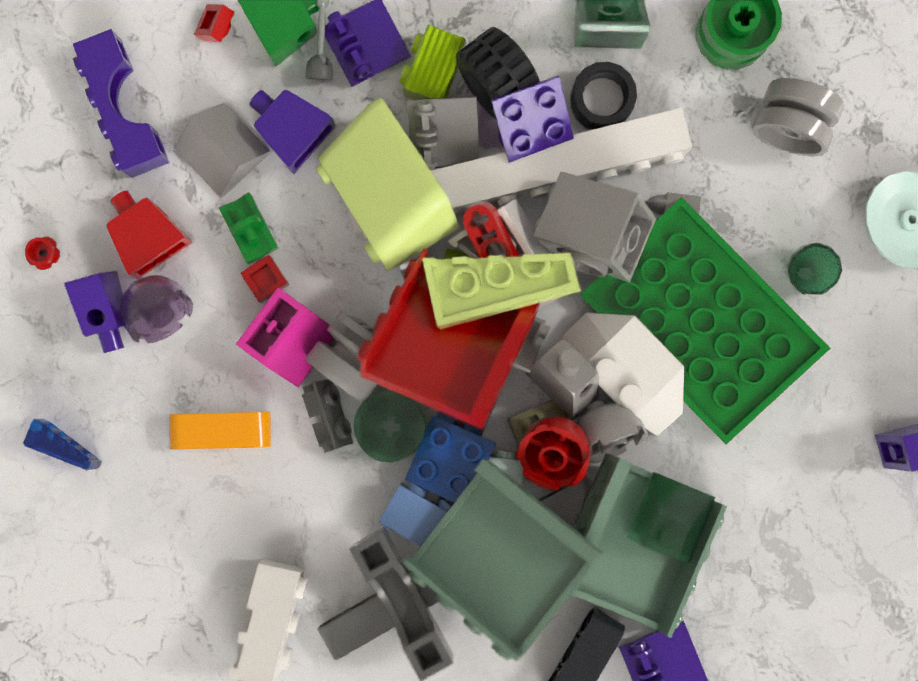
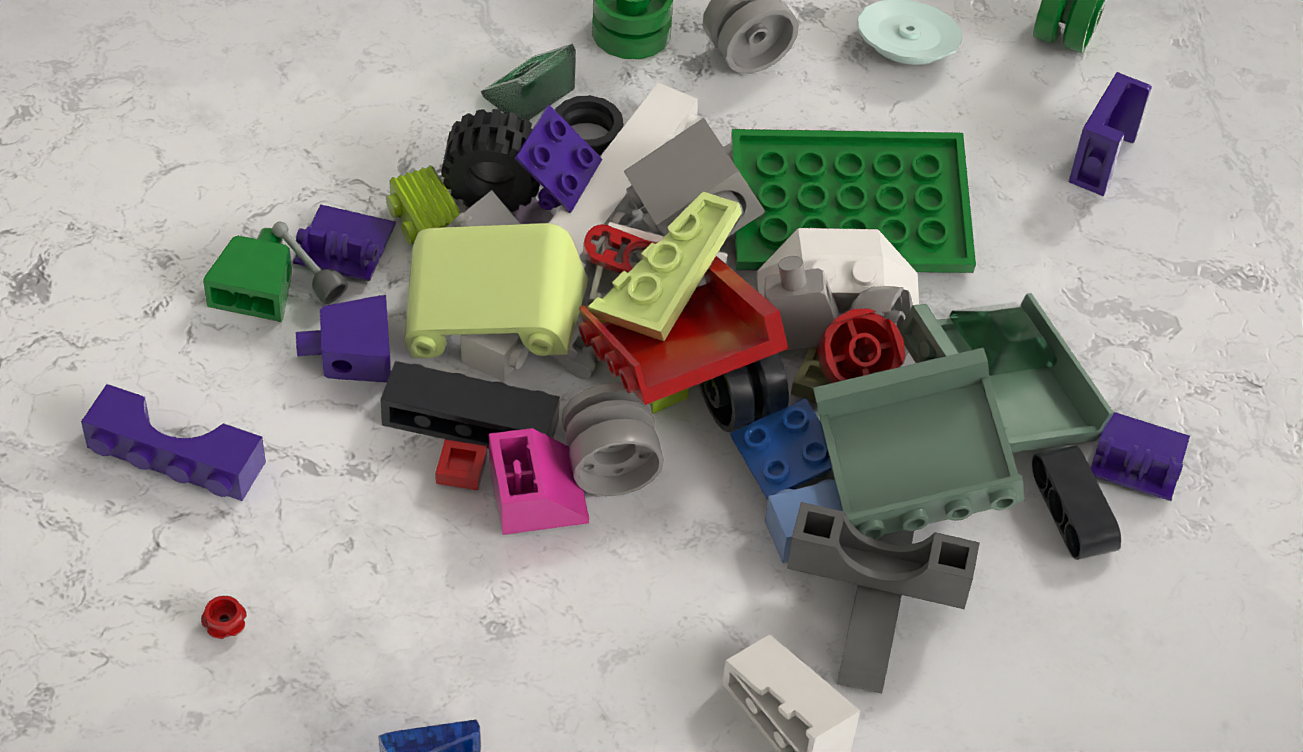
camera: 50 degrees left, 35 degrees down
(89, 299) = (336, 596): dark purple torso -> none
(143, 234) = (310, 518): red torso -> none
(153, 308) = (386, 556): clear purple cylinder -> none
(214, 23) = (193, 322): red plate -> none
(220, 148) = (304, 413): light grey slope -> none
(220, 430) = (560, 608): light orange beam -> none
(248, 228) = (404, 433): green hips -> none
(306, 246) = (462, 406): none -> black brick
(324, 400) = (656, 521): dark grey hinge -> none
(374, 438) = (705, 468): clear green brick -> none
(814, 268) = (884, 107): clear green hair -> none

